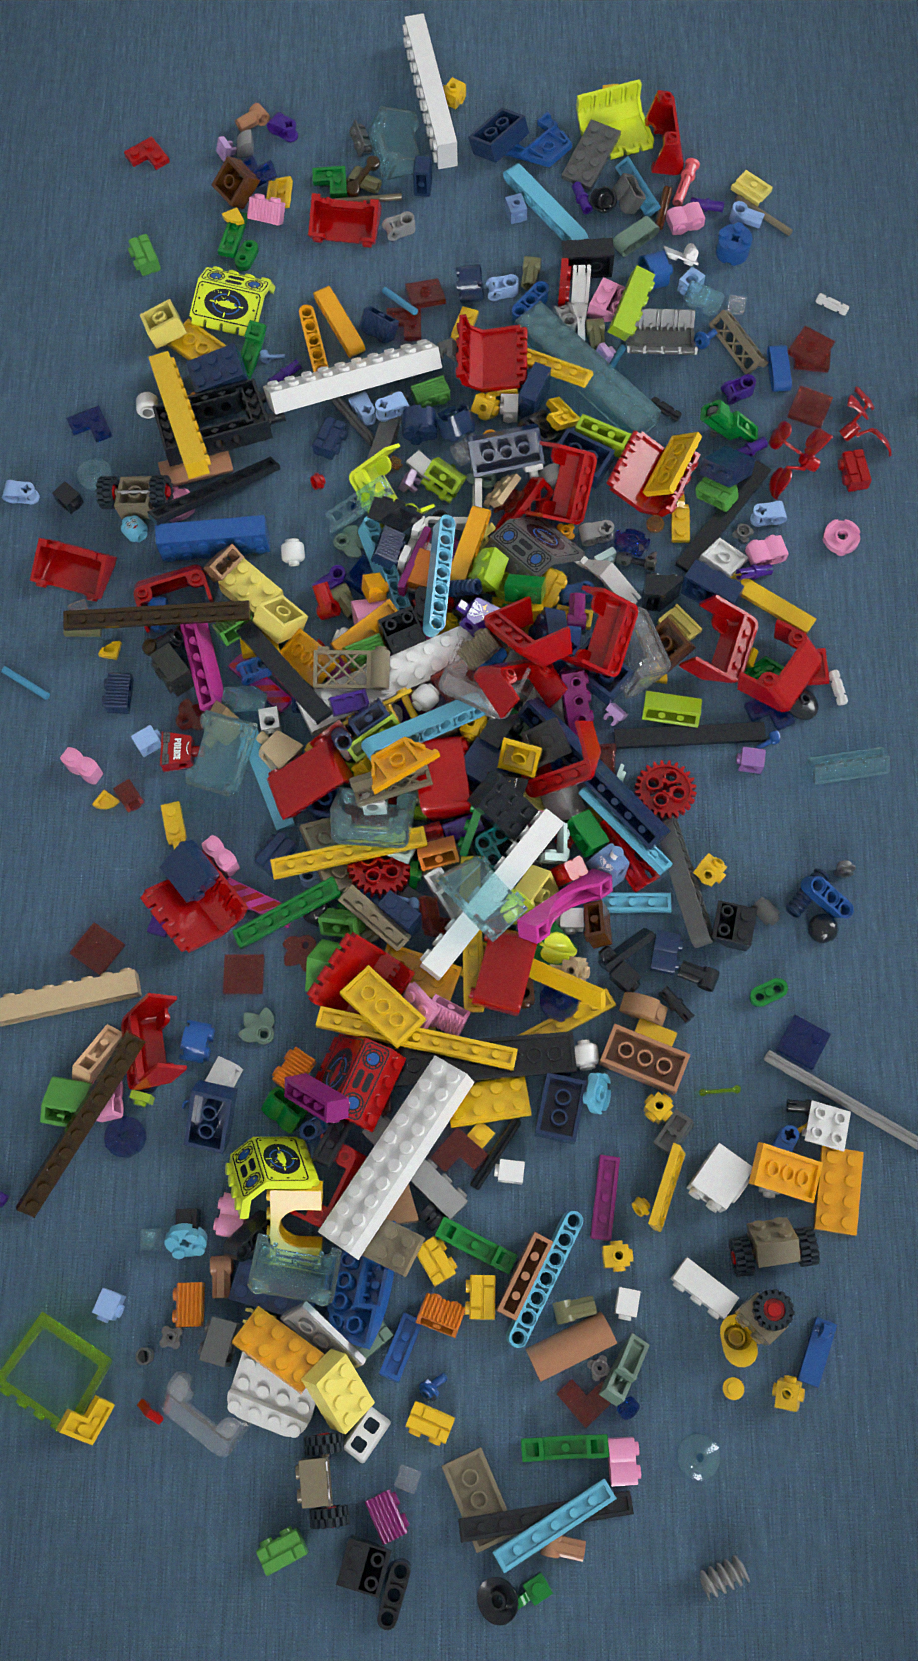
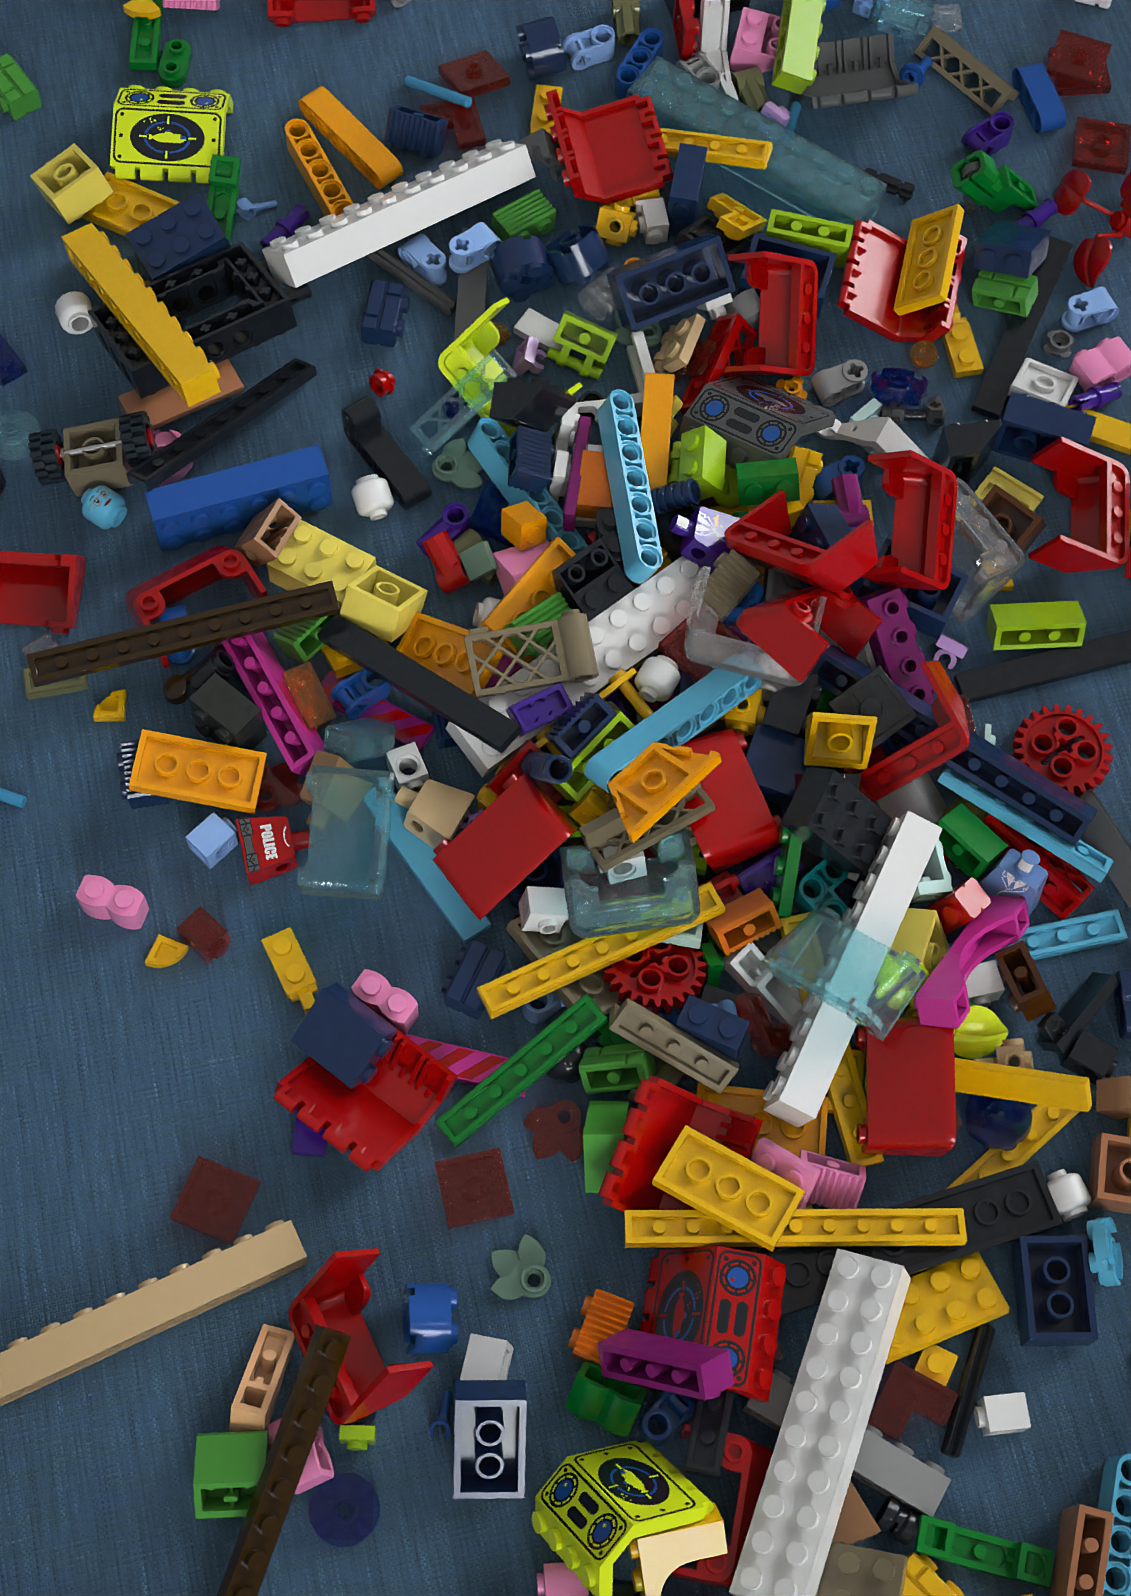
camera: 20 degrees left, 5 degrees down
(146, 699) = (197, 771): none -> light orange plate
(221, 667) = (309, 696): none -> clear orange bracket
(306, 526) = (382, 454): none -> black beam
(319, 822) = (543, 909): none -> white brick
(342, 604) = (478, 561): none -> sand green tile

